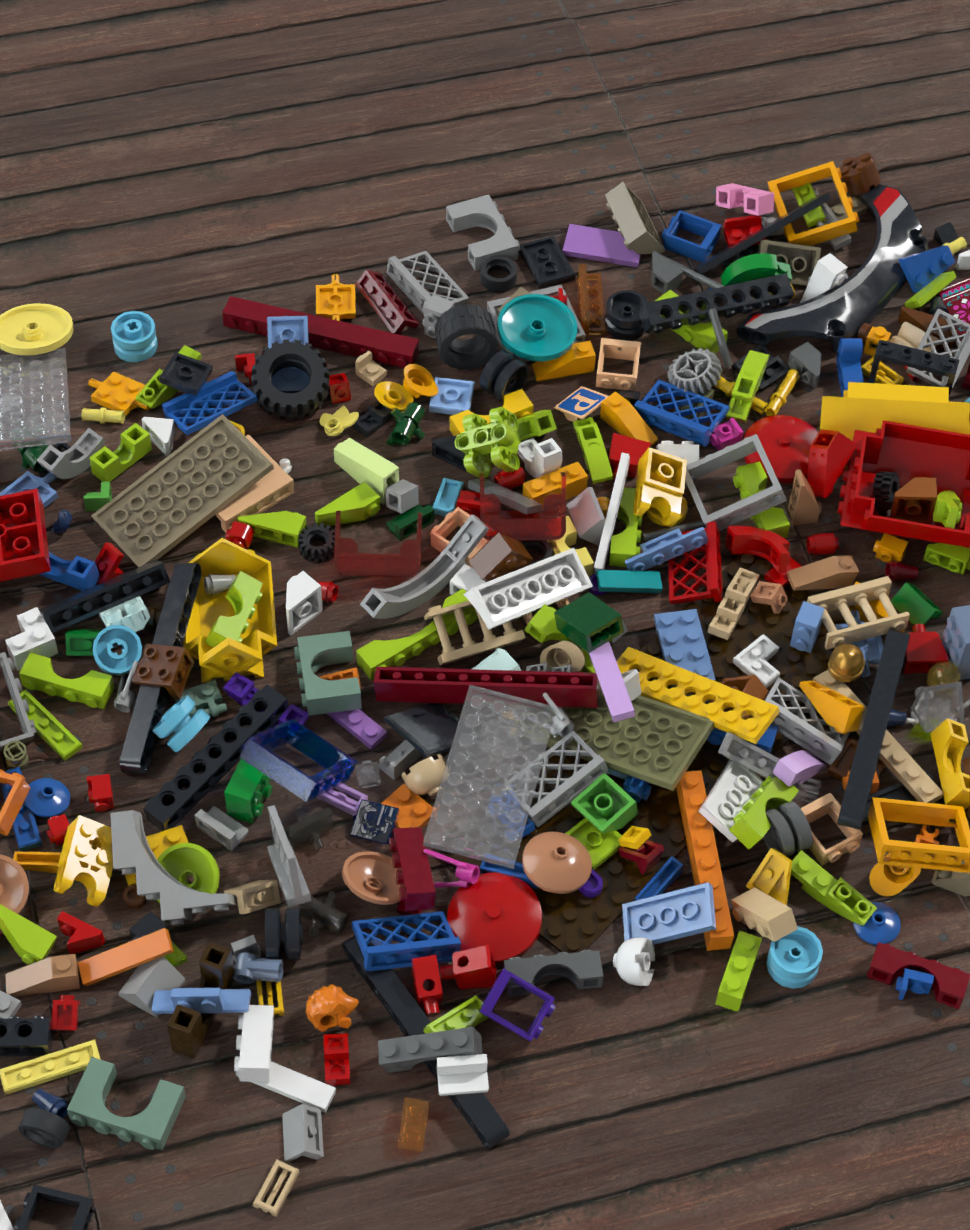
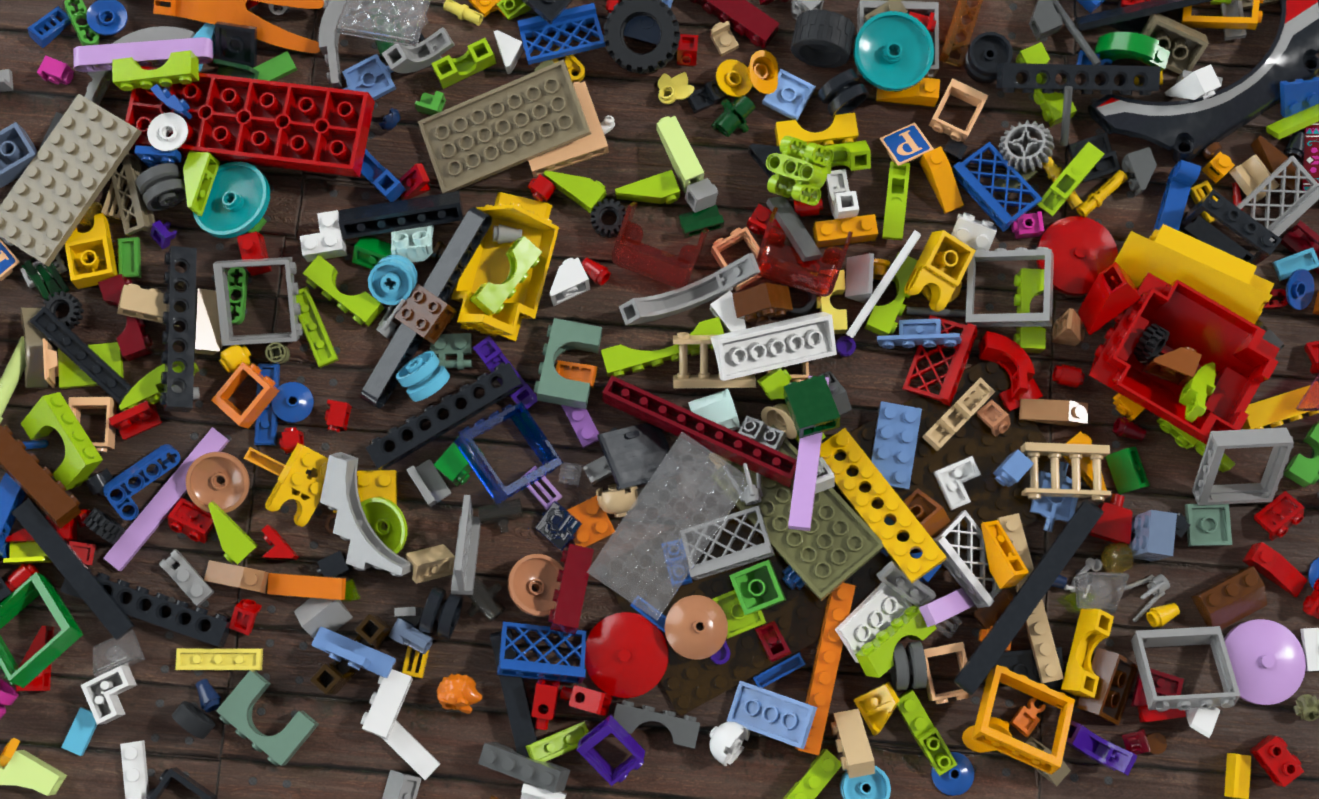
camera: 20 degrees right, 25 degrees up
(336, 1059) = (450, 737): red slope -> none
(447, 496) = (744, 206): medium azure tile -> none
(465, 872) = (615, 608): dark pink plant -> none
(628, 445) = (925, 217): red torso -> none
(629, 581) = (874, 355): teal tile -> none
(634, 837) = (772, 627): yellow tile -> none
(846, 663) = (1033, 518): pearl gold hat -> none

